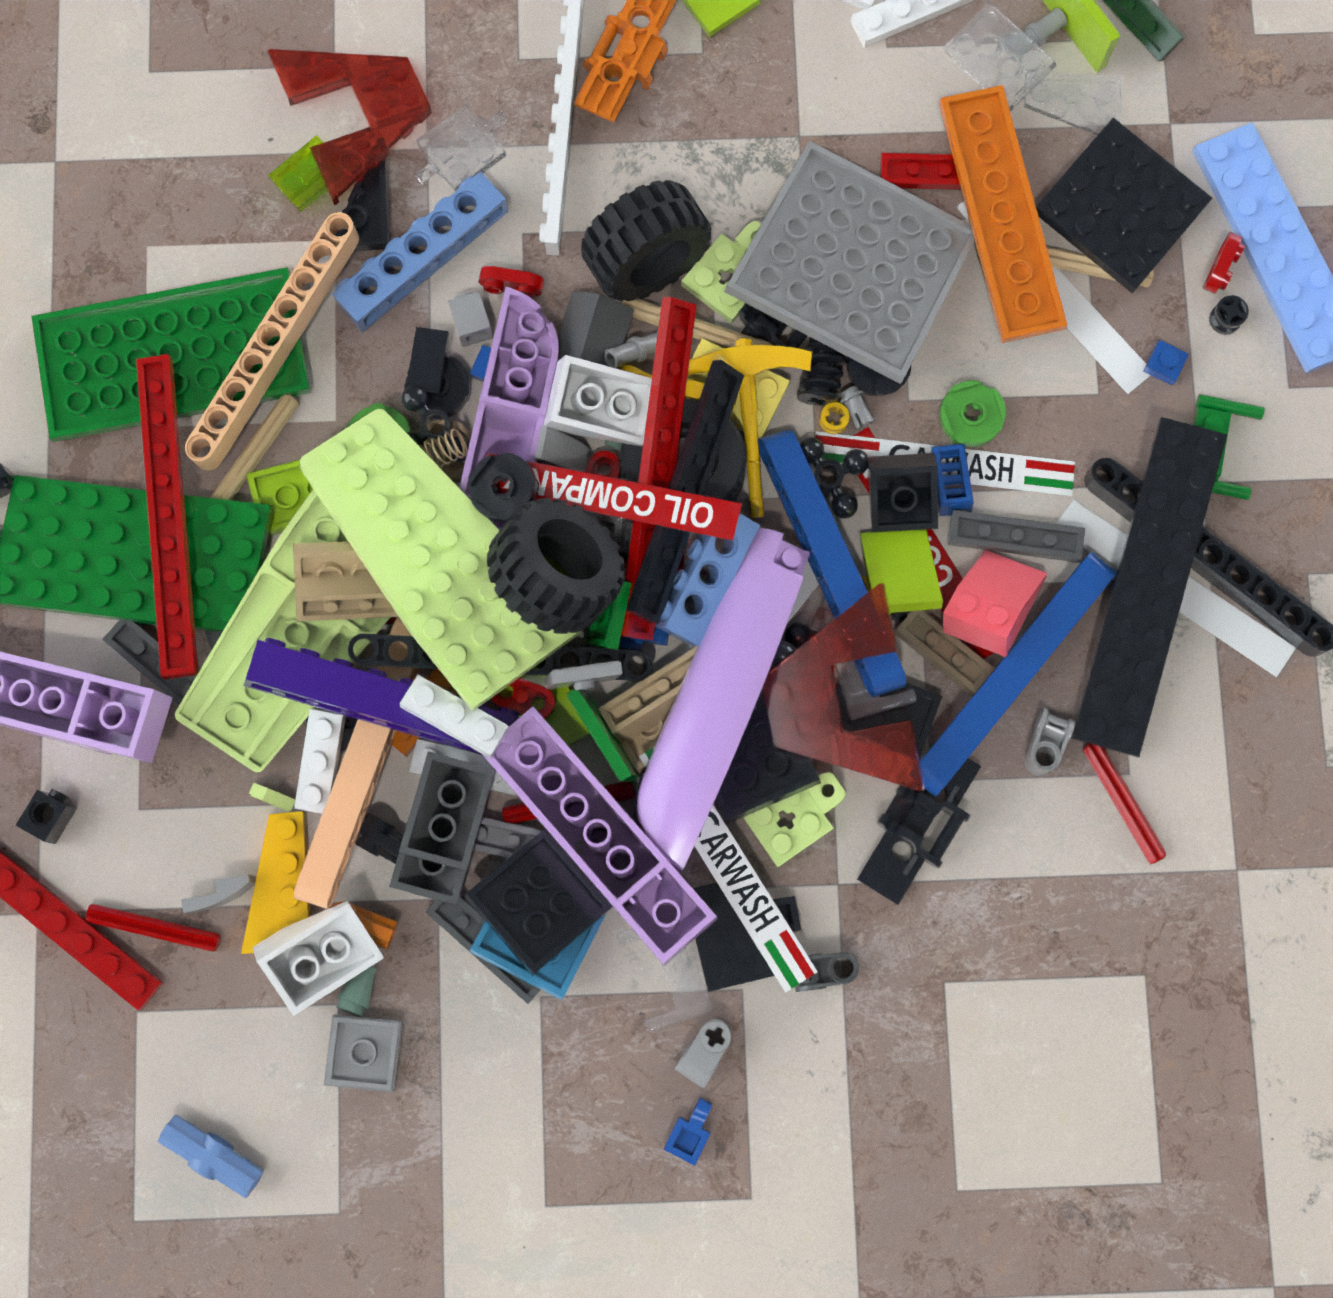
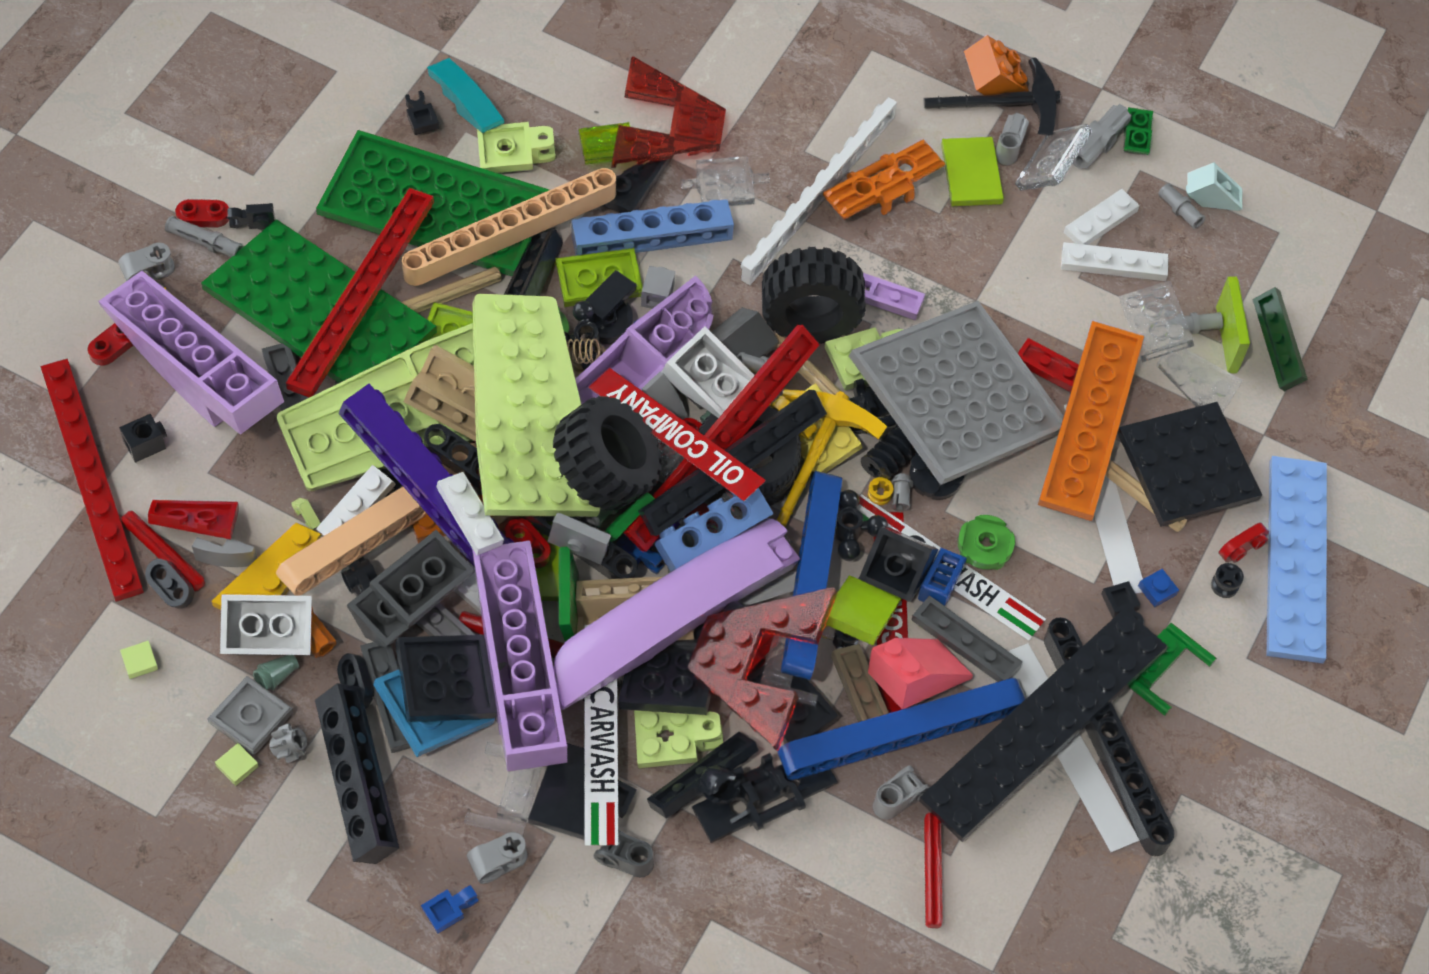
camera: 25 degrees right, 20 degrees down
(87, 256) = (421, 115): none -> black plate
(121, 204) = (466, 95): none -> teal slope
(164, 872) = (200, 517): none -> red wing
(187, 964) = (171, 585): none -> black plate
(209, 1061) = (139, 659): none -> yellowish green tile
(210, 1156) = (95, 720): medium blue piece -> none
(223, 225) = (523, 147): none -> yellowish green plate
(327, 377) = (535, 264): none -> black slope
(383, 1111) = (236, 764): none -> yellowish green tile
(386, 342) = (585, 273): none -> lime tile
(422, 1061) = (288, 743): none -> light grey gear
(445, 952) = (354, 672): none -> black plate
(495, 280) = (713, 284): red plate -> none
(501, 468) = (603, 377): black plate -> none
(512, 1053) = (356, 774): none -> black brick
(717, 184) = (892, 297): none -> lavender plate
(855, 843) = (706, 778): none -> black plate
(1142, 400) = (1121, 597): none -> black plate

